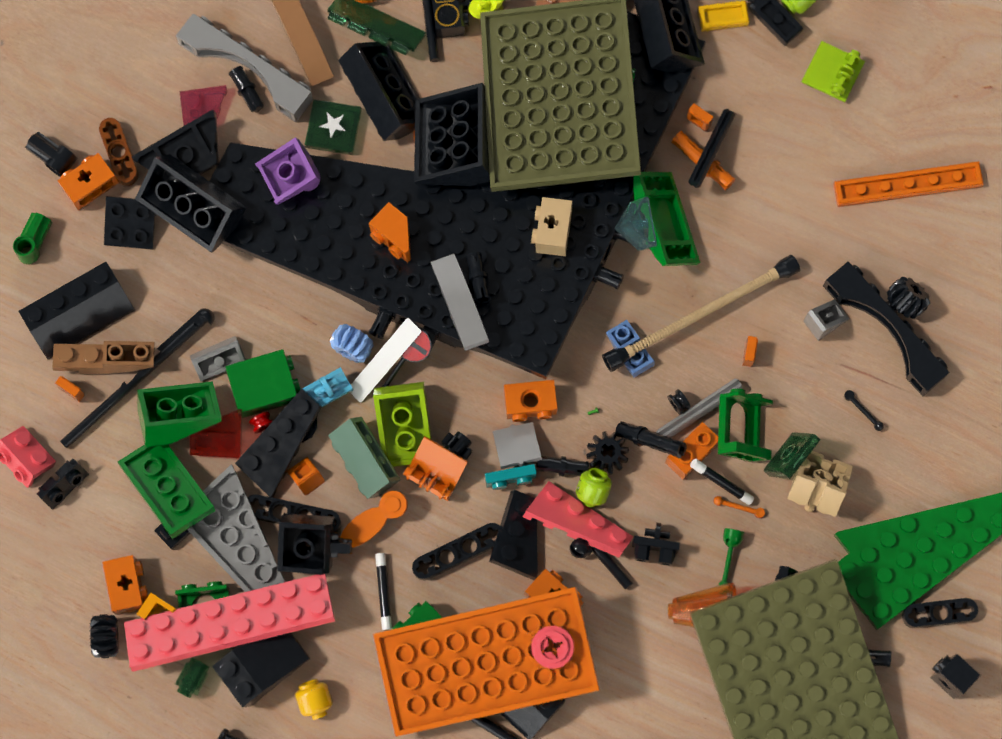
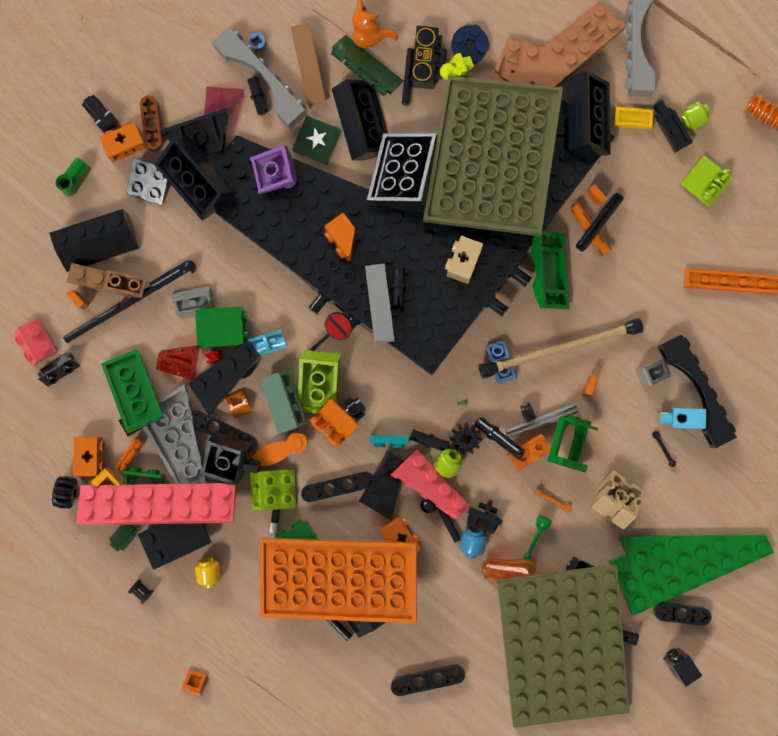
camera: 15 degrees right, 10 degrees up
(176, 411) = (152, 336): green slope -> none
(177, 572) = (129, 454): none -> orange axle
(237, 29) = (253, 37): none -> medium blue bush
(351, 343) = (293, 313): light blue gear -> none
(373, 573) = (272, 490): none -> lime bracket
(384, 359) = (315, 331): white sticker -> none
(517, 445) = (399, 418): light grey piece -> none
(540, 643) = (383, 592): coral gear -> none
(541, 390) = (428, 383): orange brick -> none
(637, 225) = (529, 271): clear light blue slope -> none
(649, 582) = (473, 542): none -> dark azure head
(722, 481) = (545, 481): black bar -> none
(791, 455) = (602, 473): clear green tile -> none
(887, 357) = (692, 418): none -> medium azure torso
(908, 297) = (720, 372): black gear -> none

